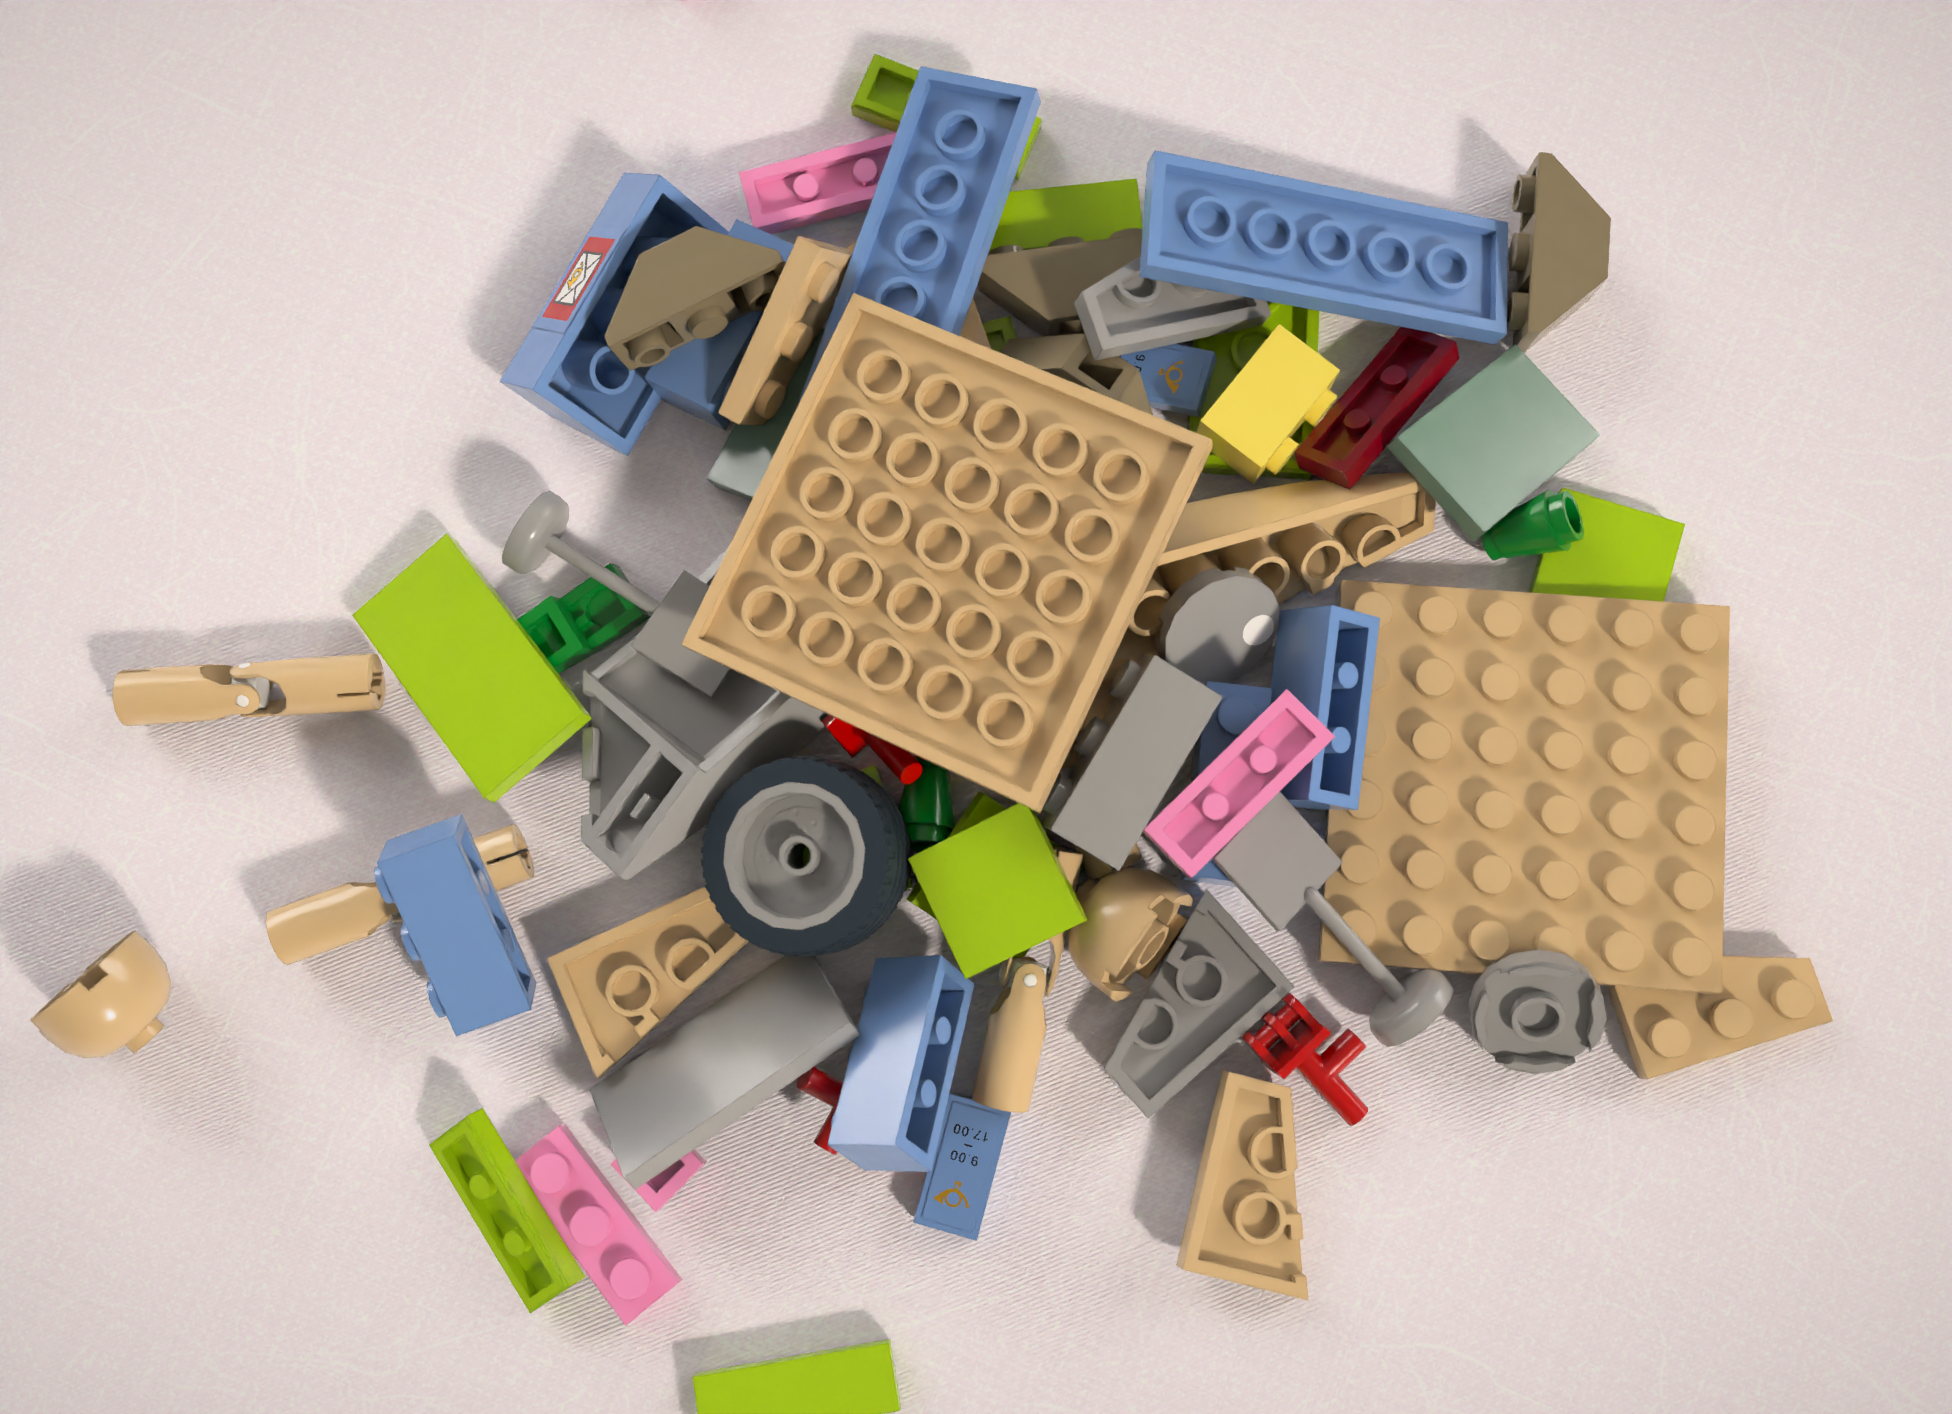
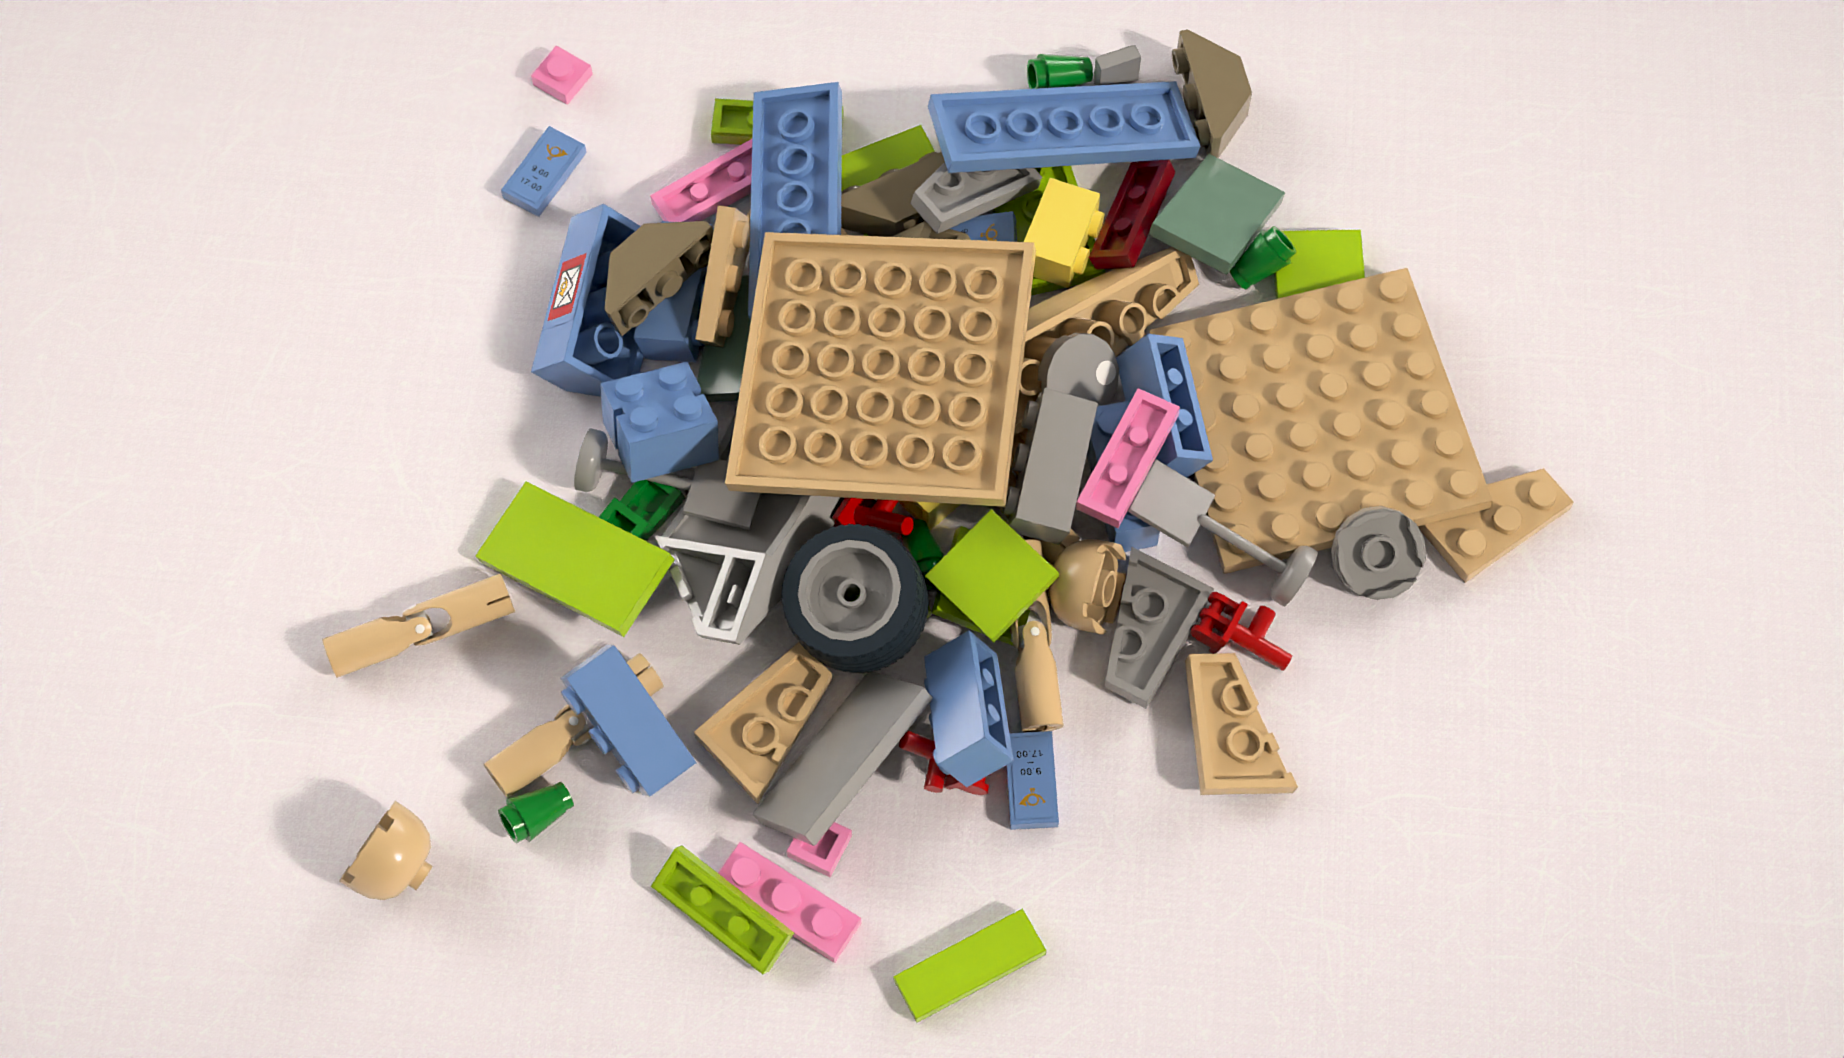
camera: 25 degrees left, 15 degrees down
(314, 995) = (534, 811): none -> green cone
(616, 90) = (543, 171): none -> medium blue tile
(637, 511) = (659, 421): none -> medium blue piece
(1349, 159) = (1058, 71): none -> green cone
(1433, 177) = (1117, 67): none -> light grey tile

